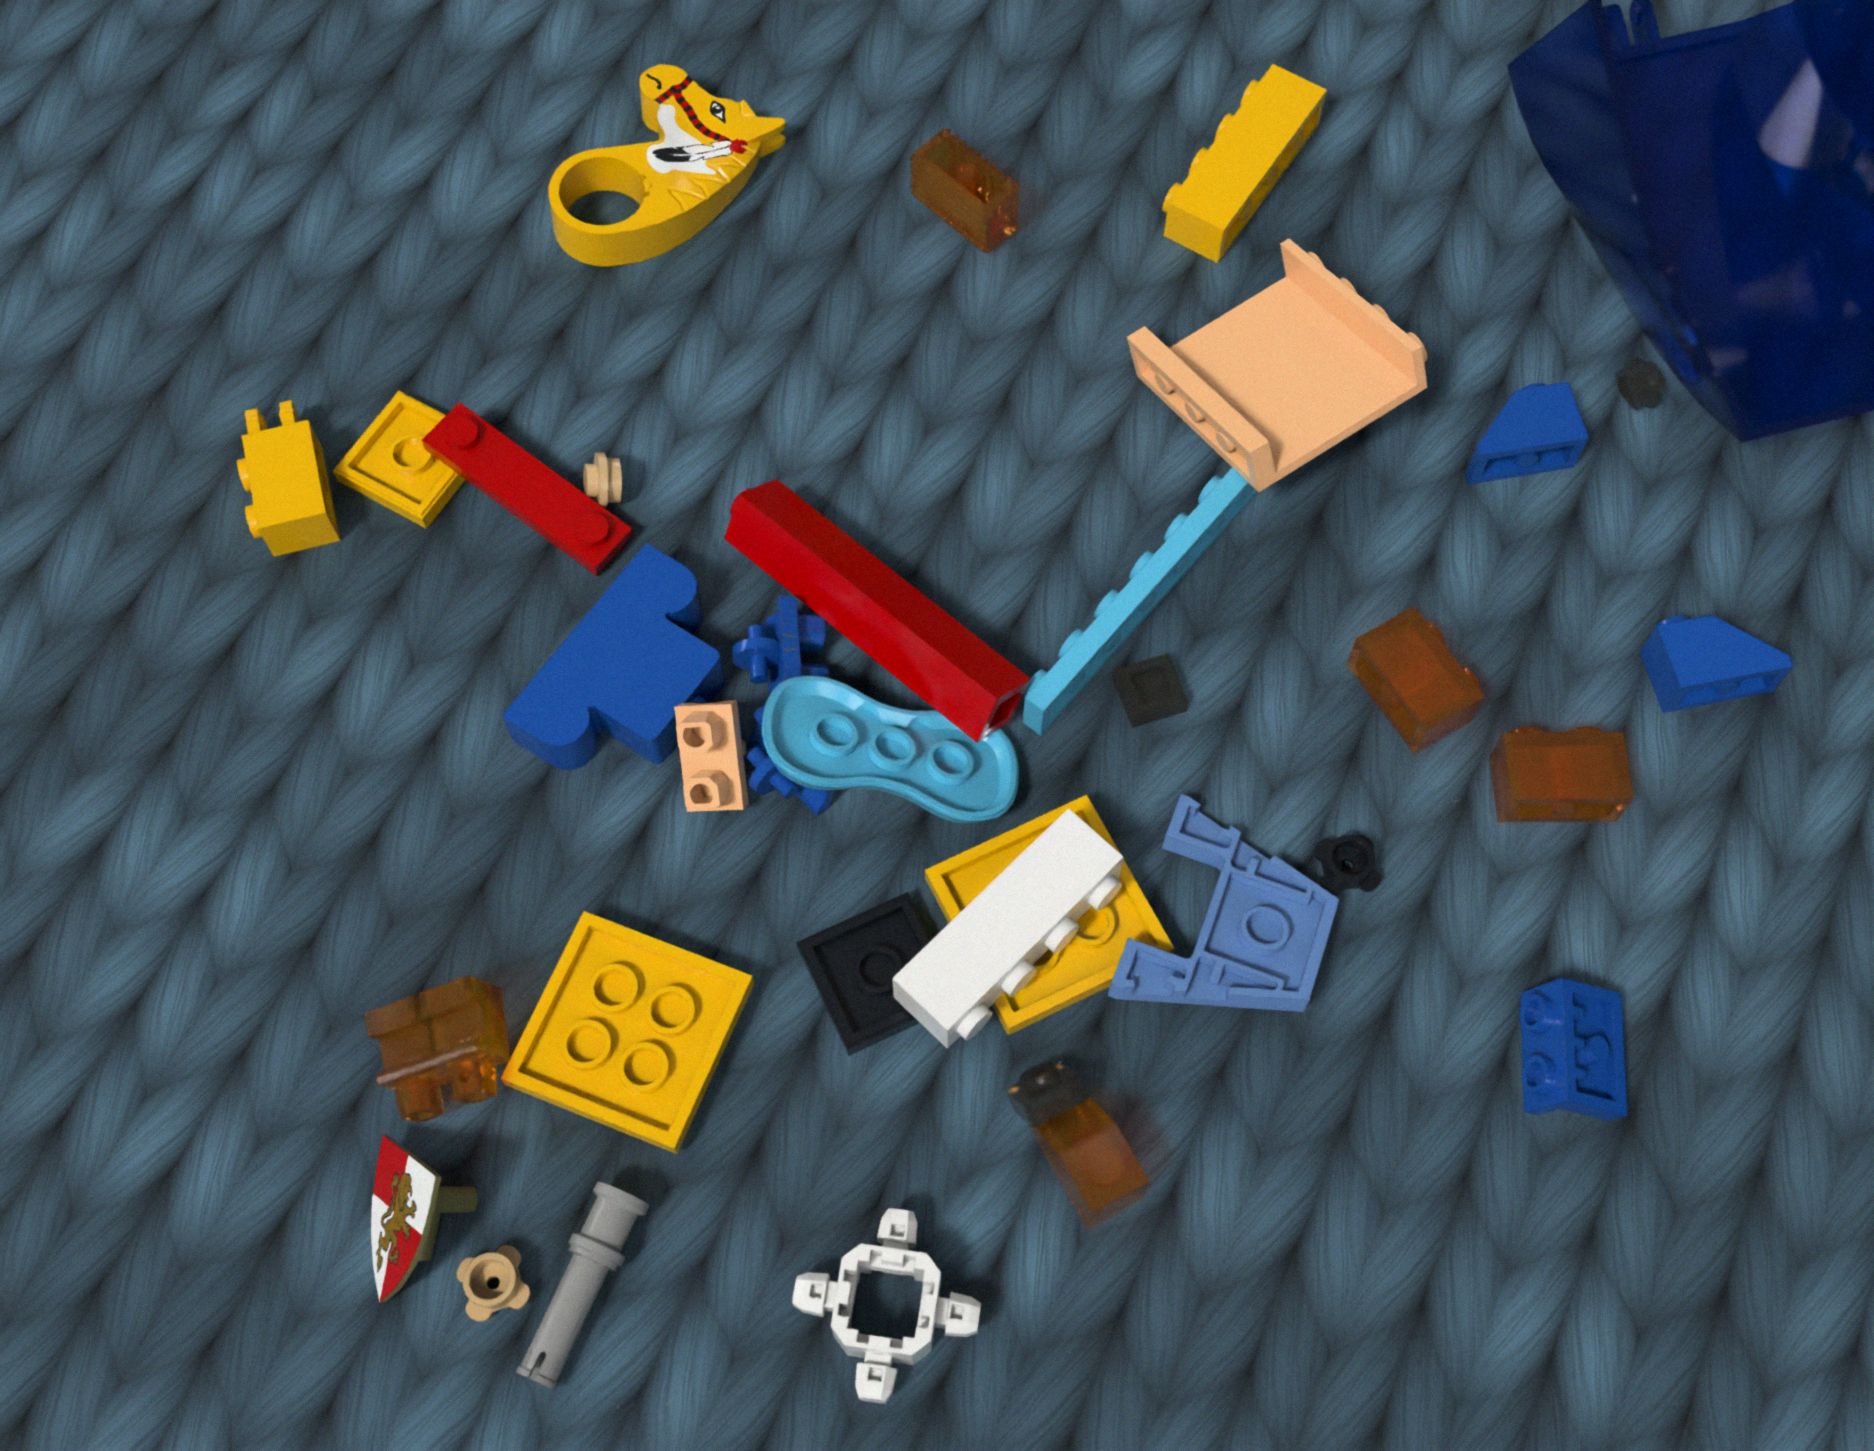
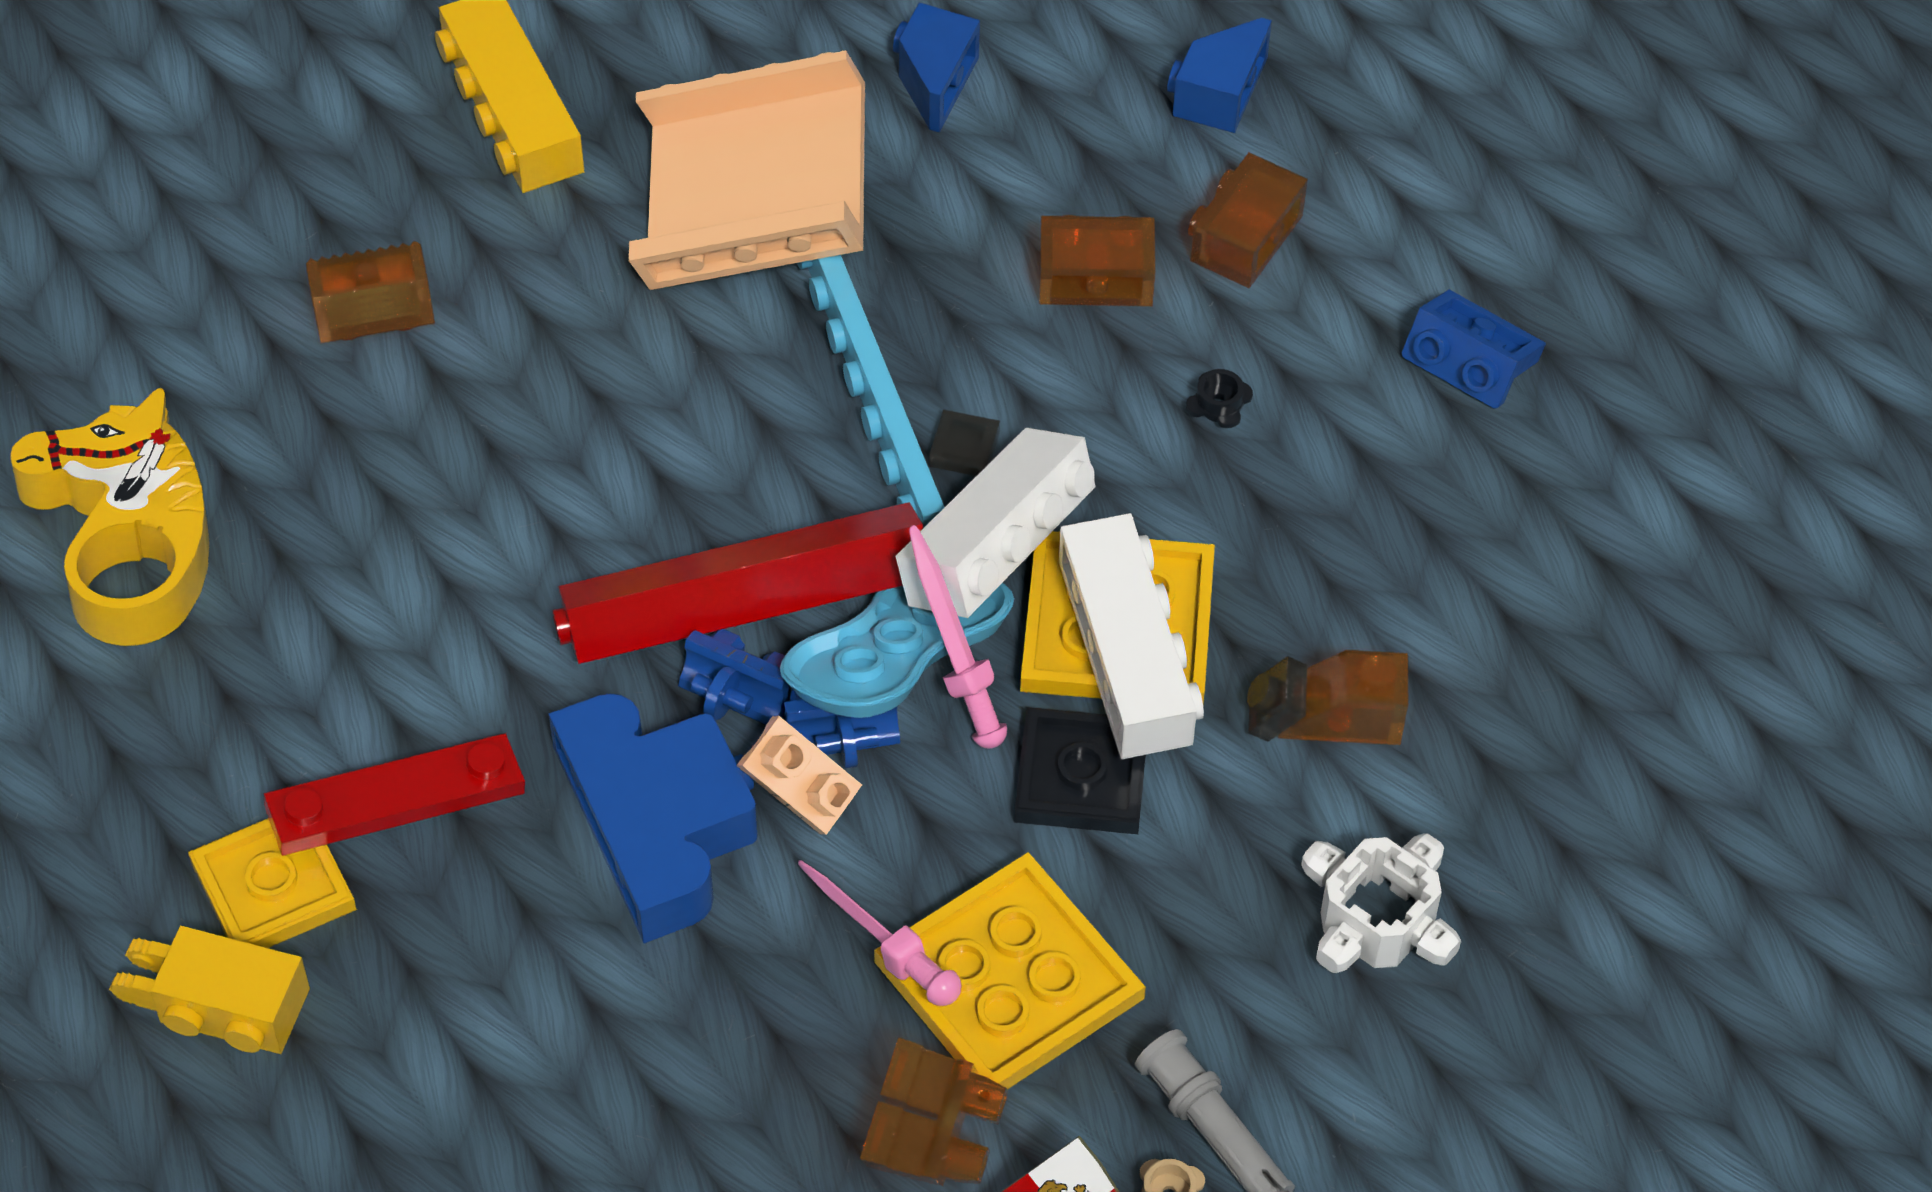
camera: 60 degrees left, 10 degrees down
(580, 933) = (901, 951): none -> bright pink sword
(603, 479) = (435, 726): tan plate -> none
(890, 825) = (969, 676): none -> bright pink sword
(1058, 757) = (1001, 517): none -> white brick
(1257, 937) = (1238, 482): medium blue wing -> none

